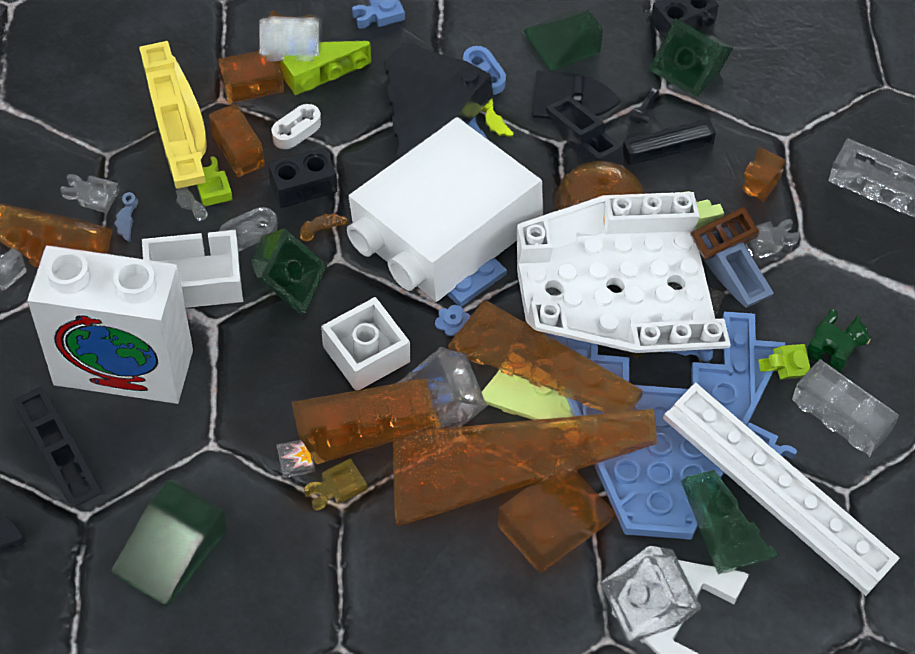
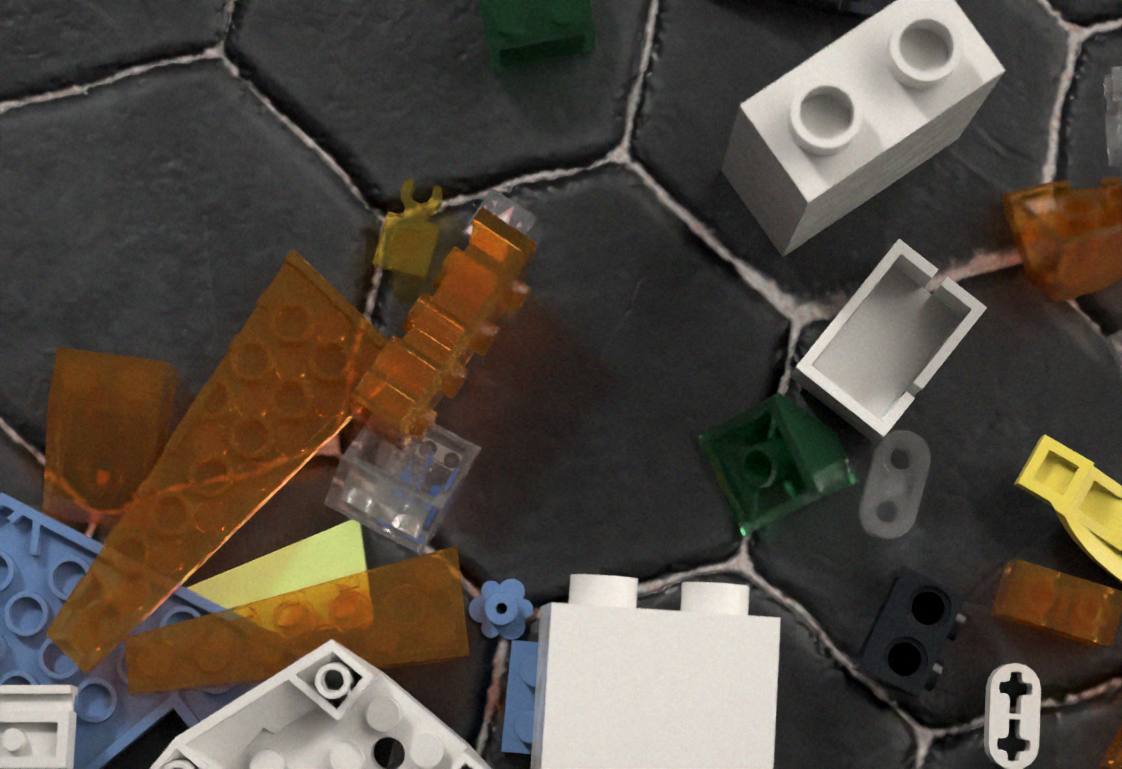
camera: 140 degrees right, 25 degrees up
(124, 219) = (1072, 351): sand blue piece -> none
(187, 201) = (993, 455): clear piece -> none
(216, 187) = (1013, 510): lime plate -> none
(321, 222) = (815, 595): clear orange piece -> none
(366, 344) = (558, 445): white brick -> none

